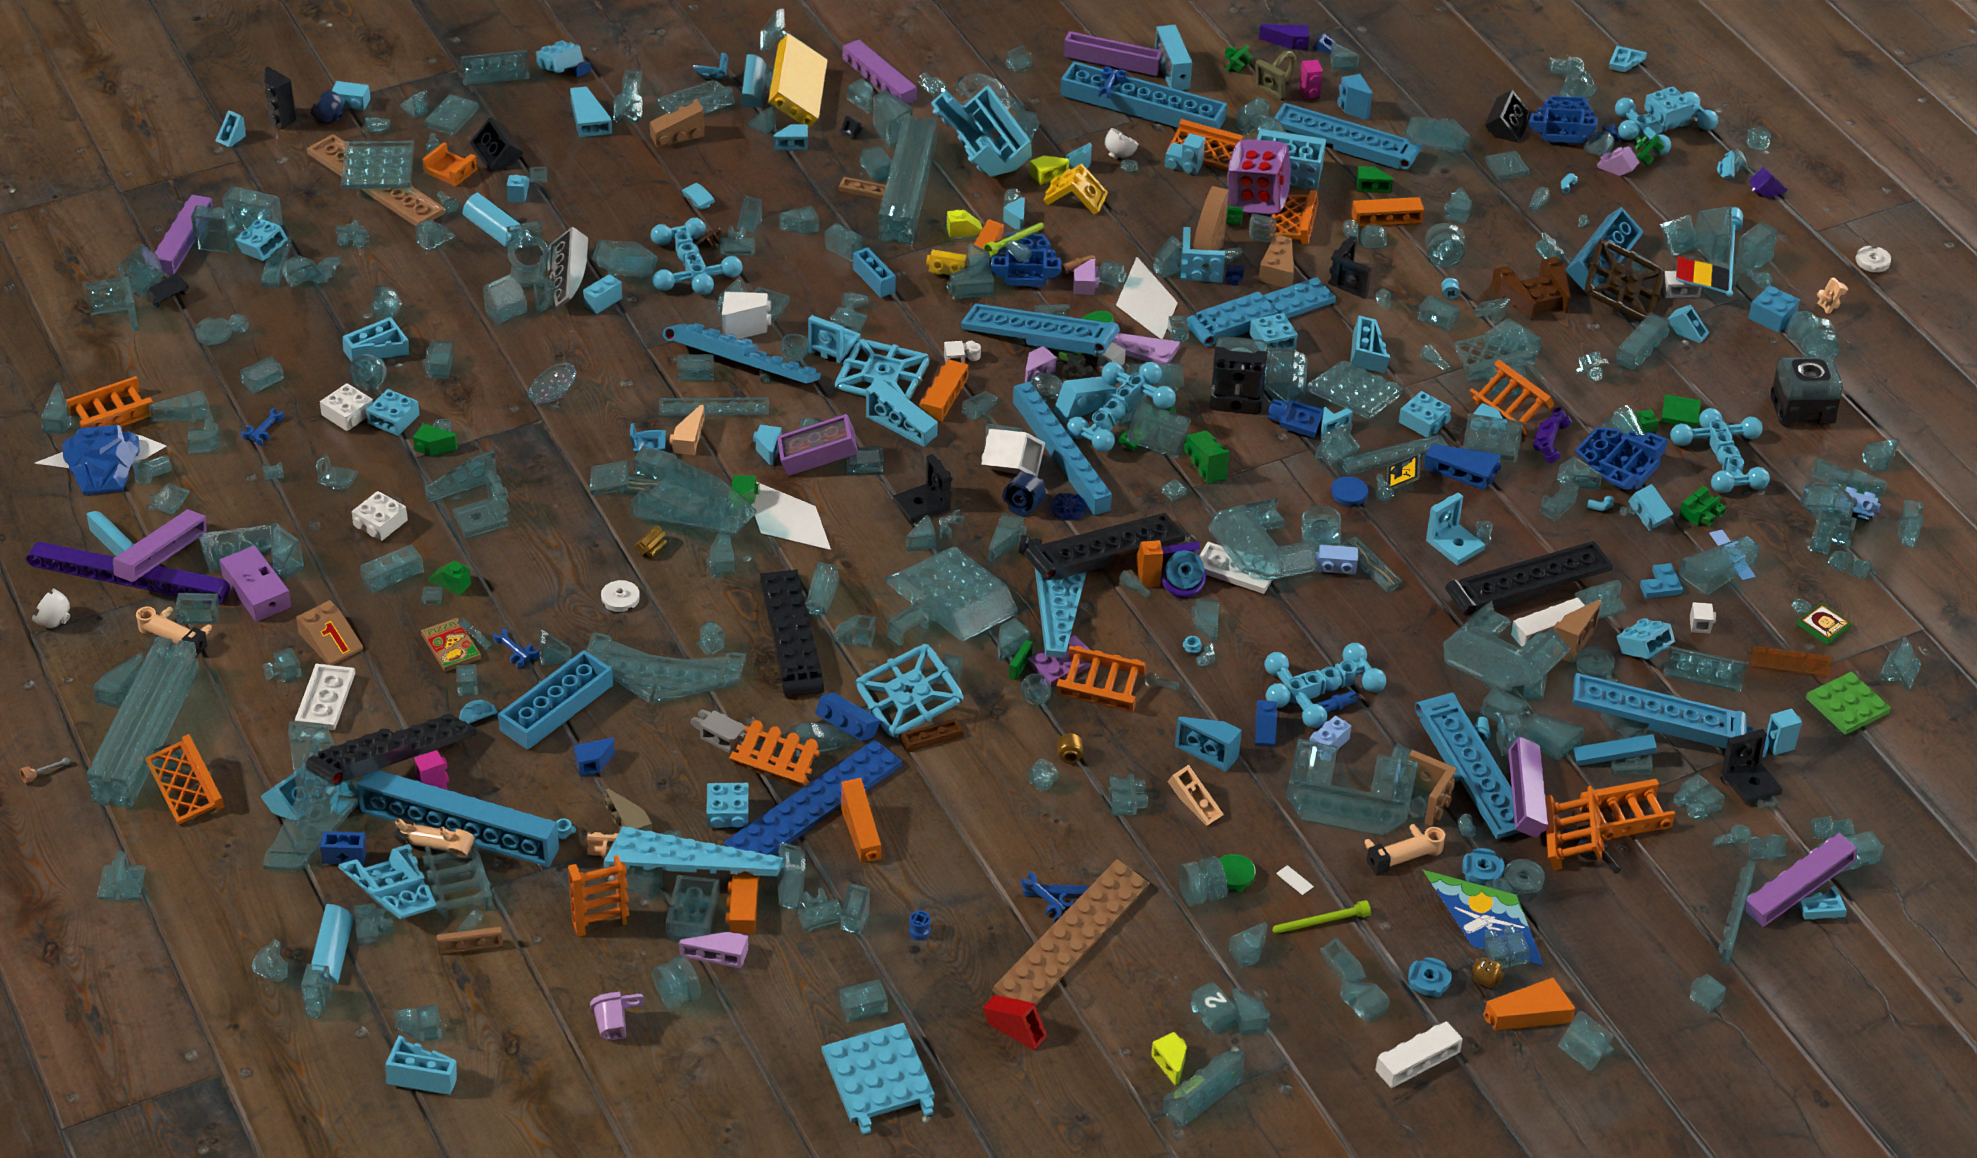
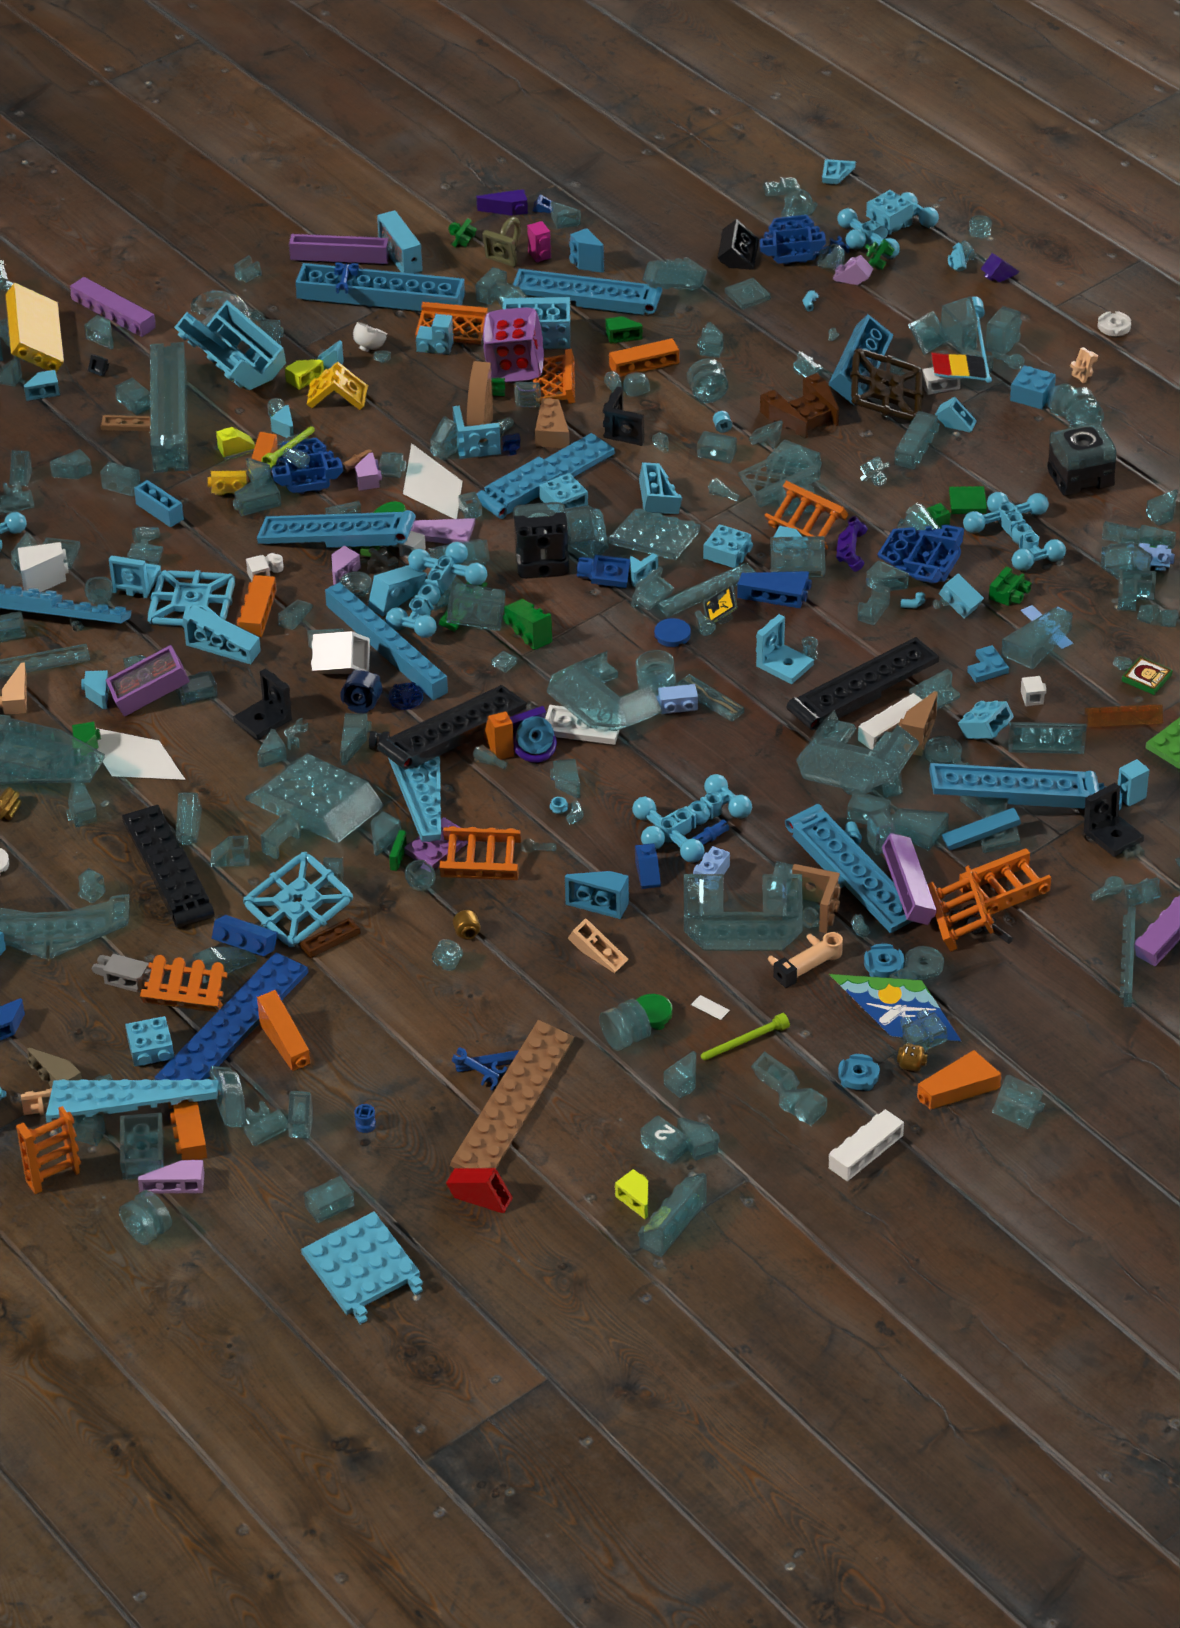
camera: 10 degrees left, 0 degrees up
(611, 1014) = (88, 1260): lavender container -> none
(888, 116) = (134, 348): clear light blue slope -> none
(932, 85) = (169, 310): clear light blue plate -> none
(1123, 794) = (529, 958): clear light blue hips -> none
(1539, 198) = (787, 318): clear light blue cone -> none
(1699, 797) = (1069, 858): clear light blue hips -> none
(1707, 992) = (1118, 1035): clear light blue brick -> none

